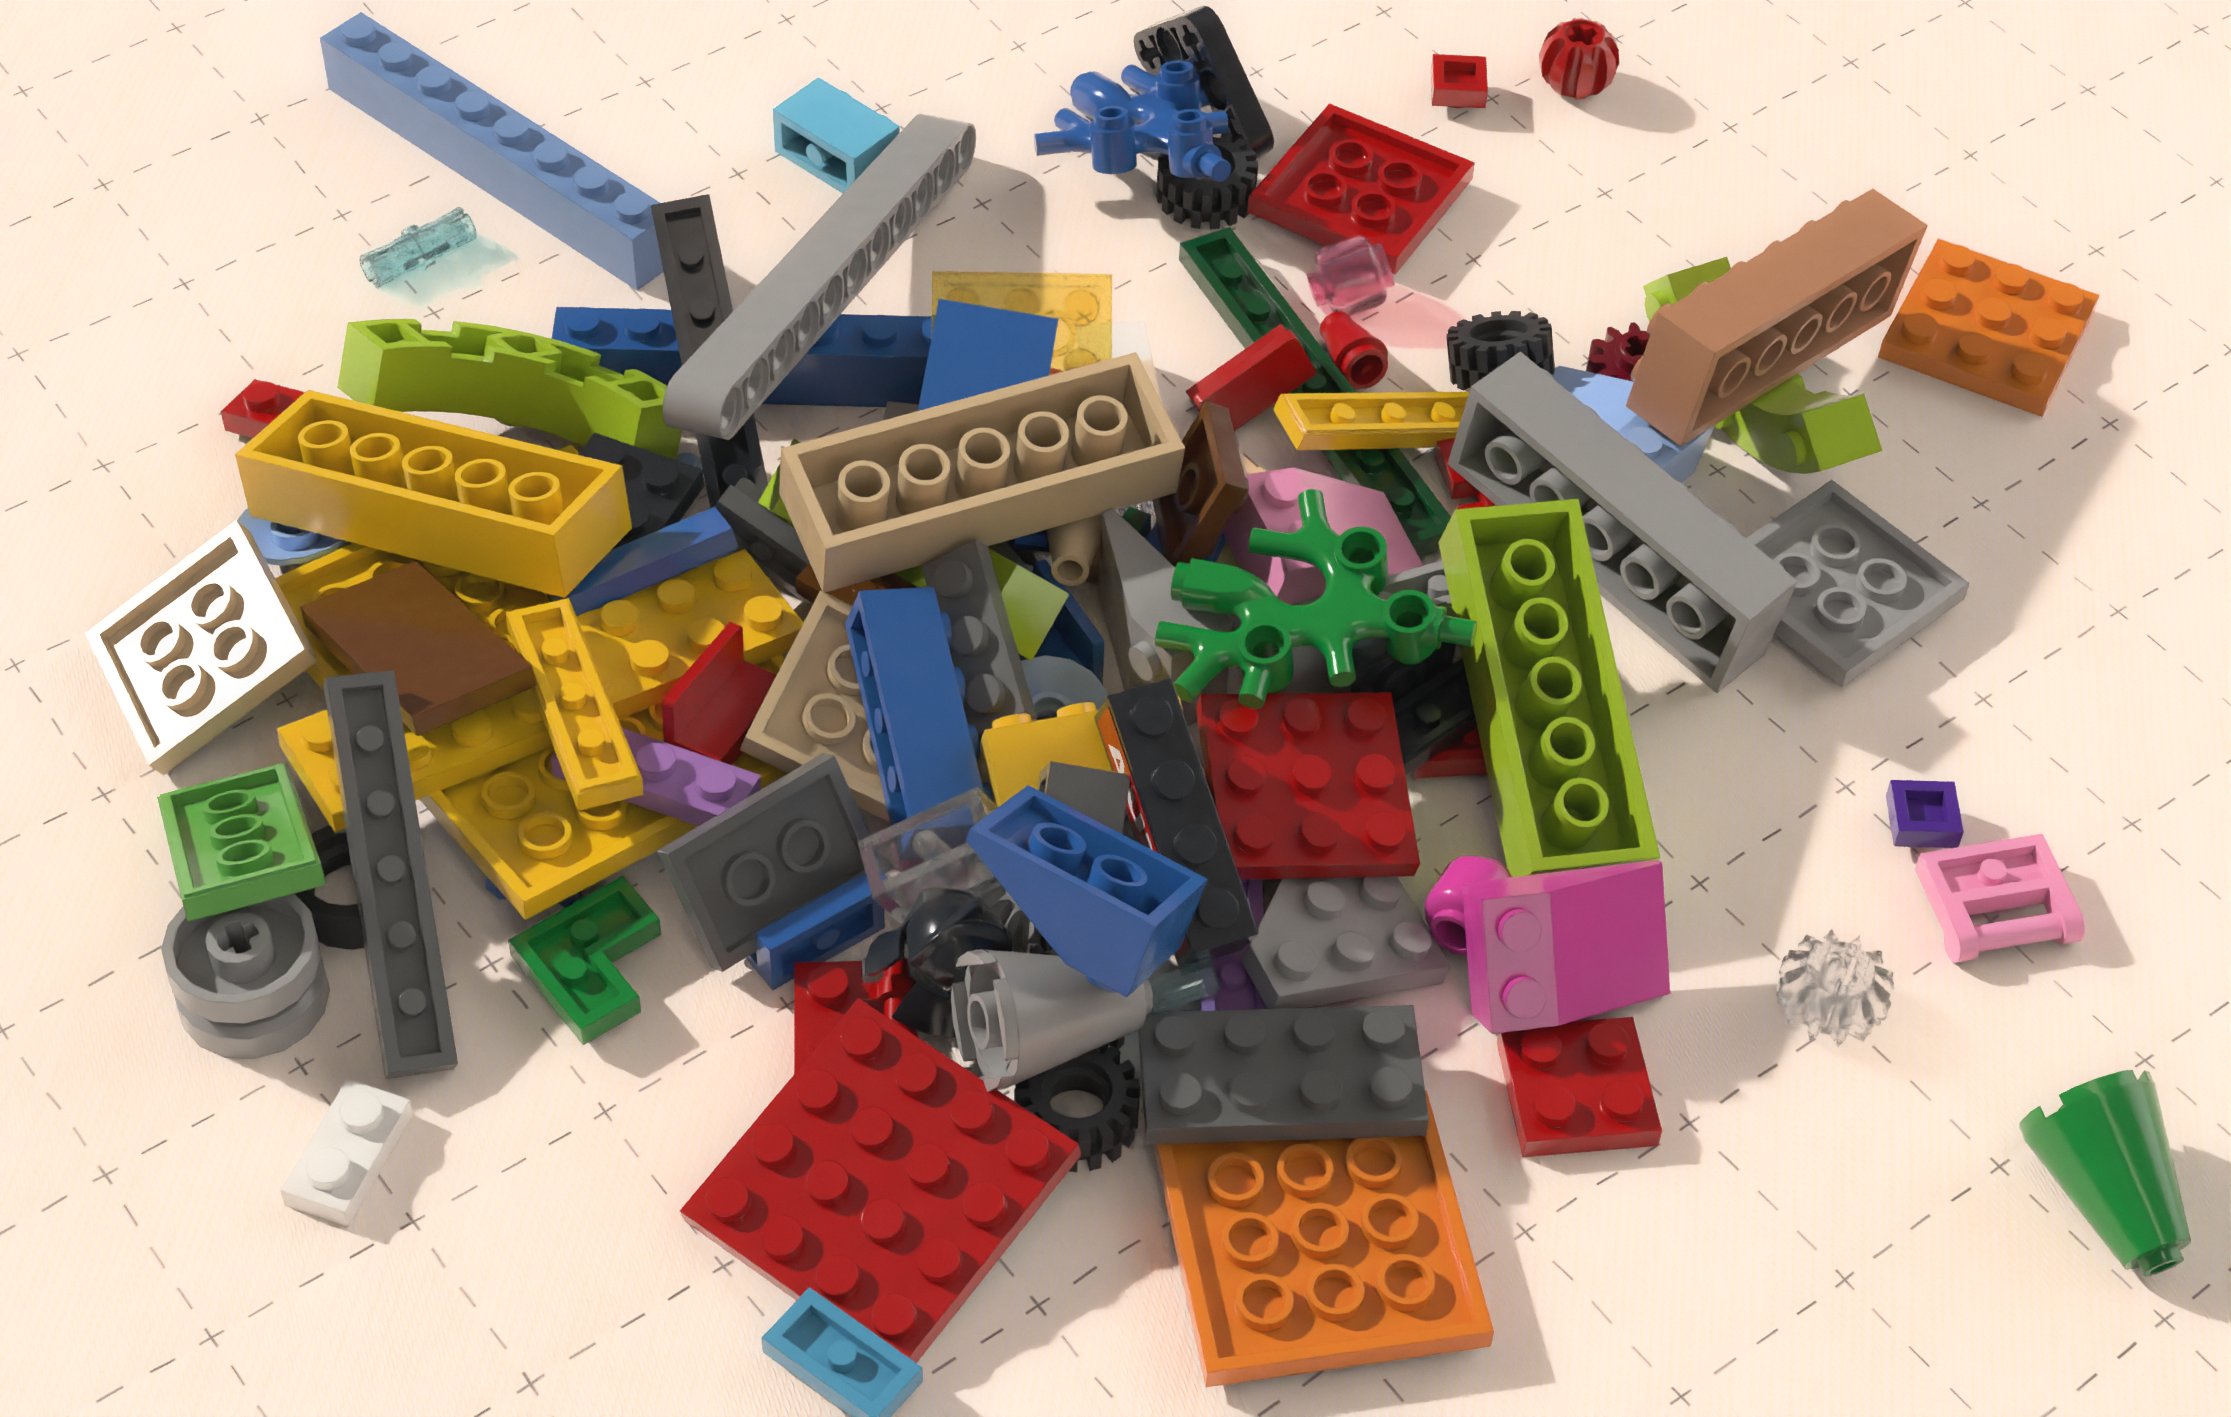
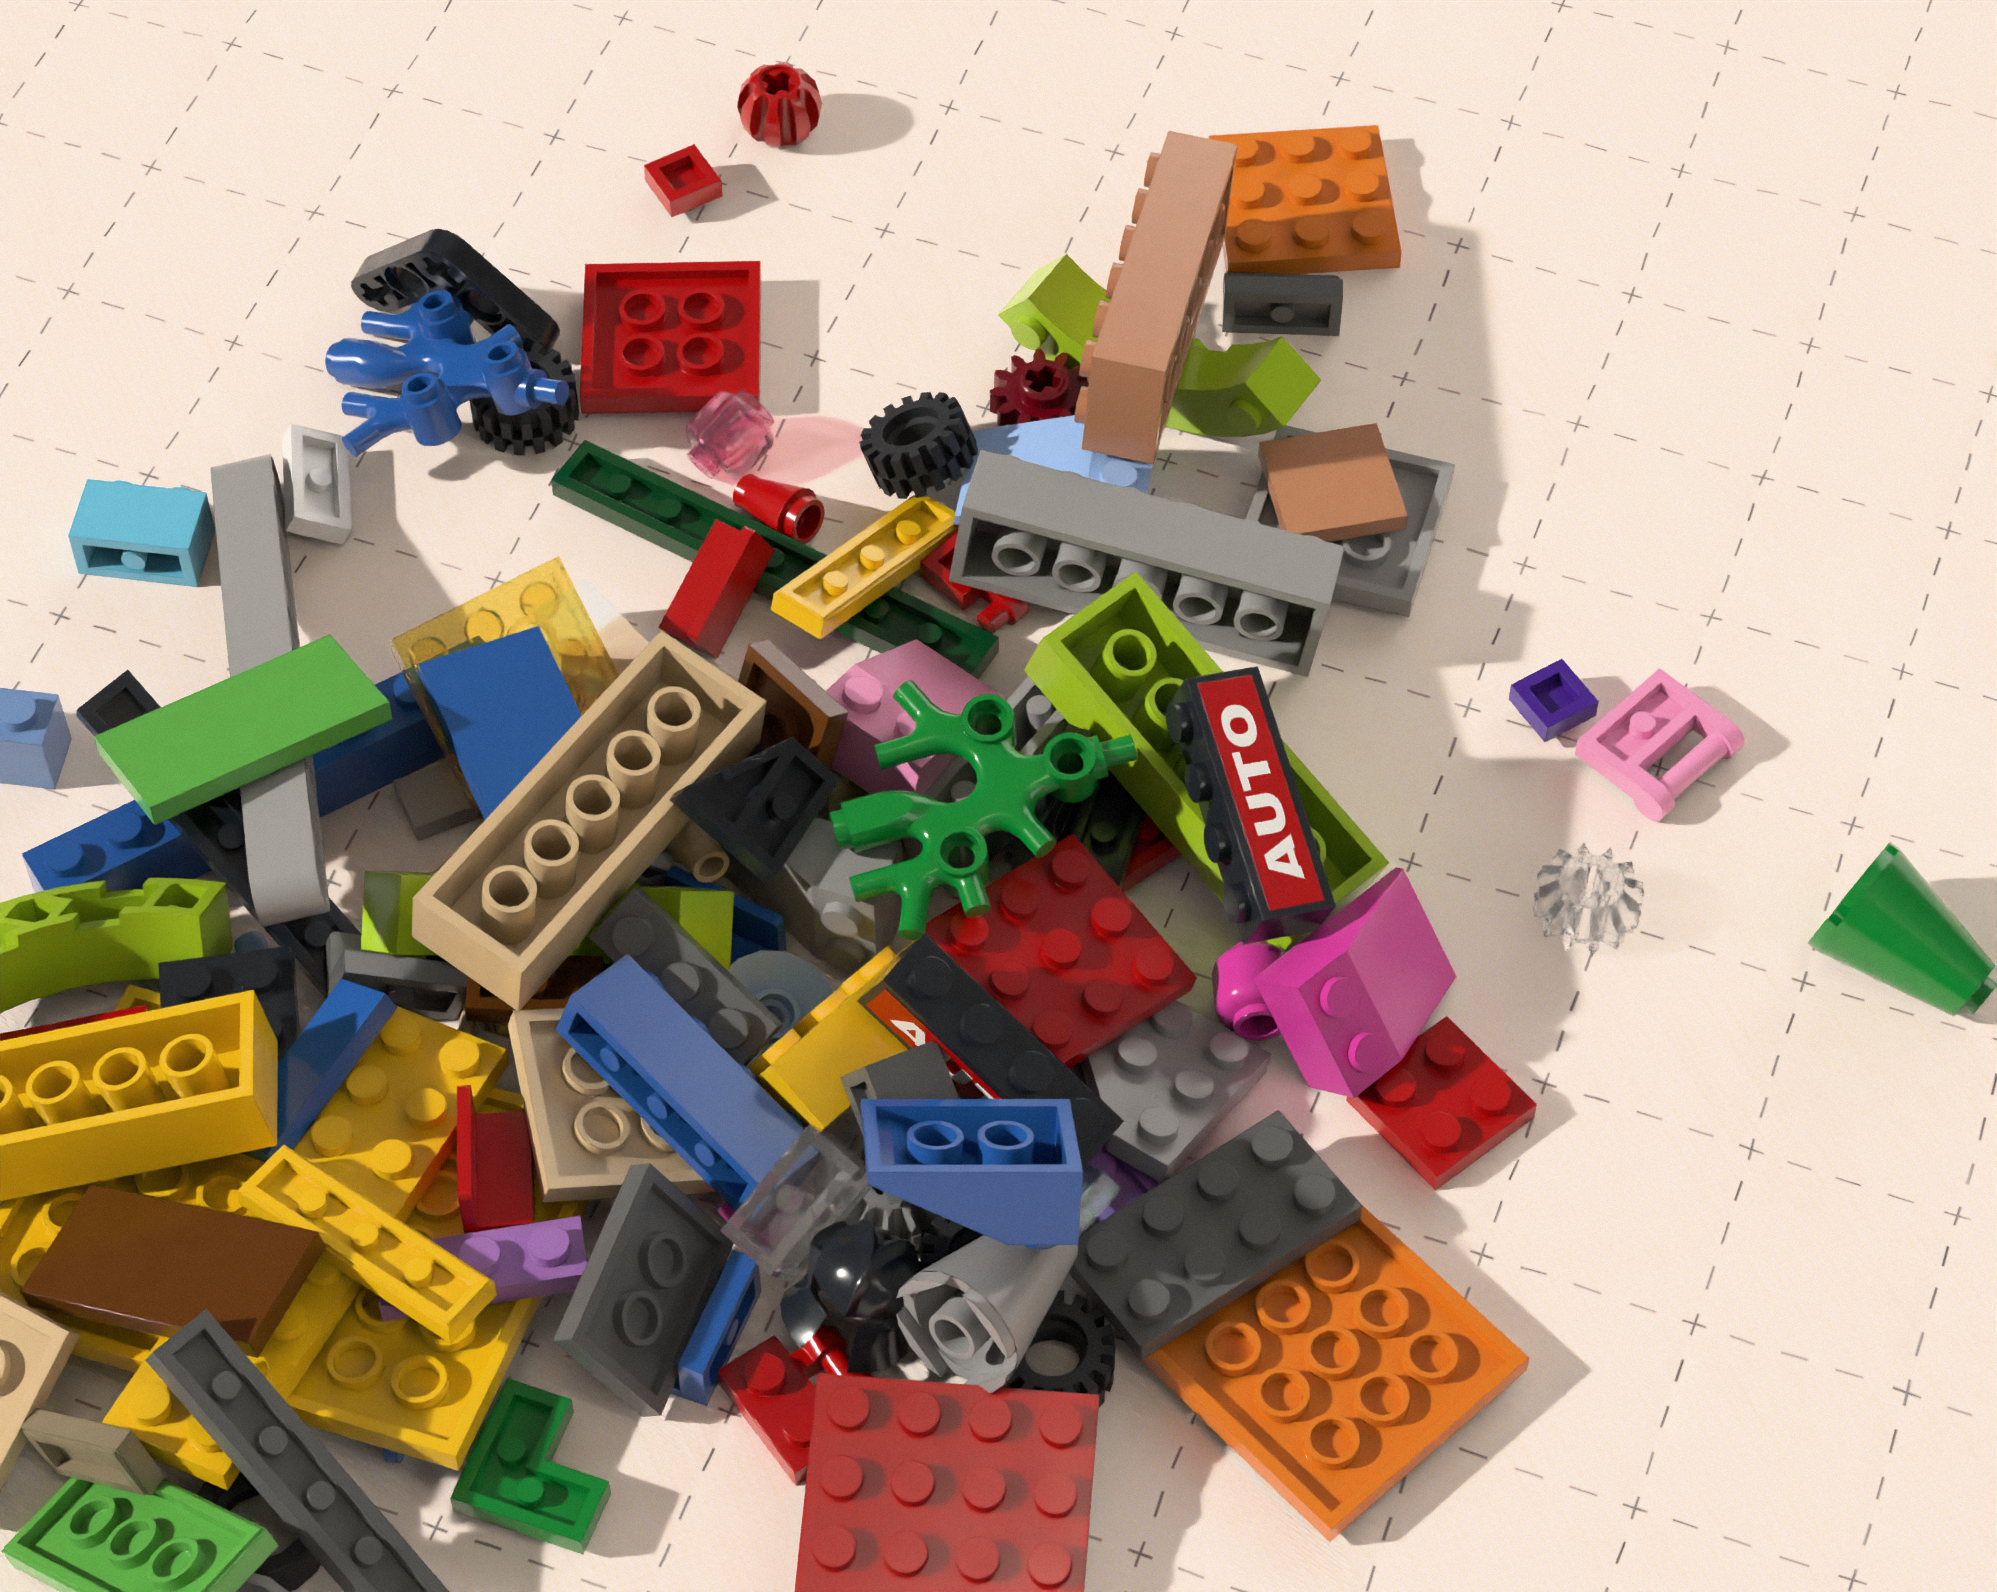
camera: 30 degrees left, 5 degrees up
(262, 752) = (93, 1452): none -> dark tan tile
(762, 277) = (242, 728): none -> bright green tile
(994, 165) = (316, 484): none -> white plate
(1126, 525) = (760, 804): none -> black wing
(1548, 736) = (1249, 805): none -> brick
(1842, 544) = (1333, 484): none -> nougat tile
(1908, 393) = (1282, 303): none -> dark grey panel

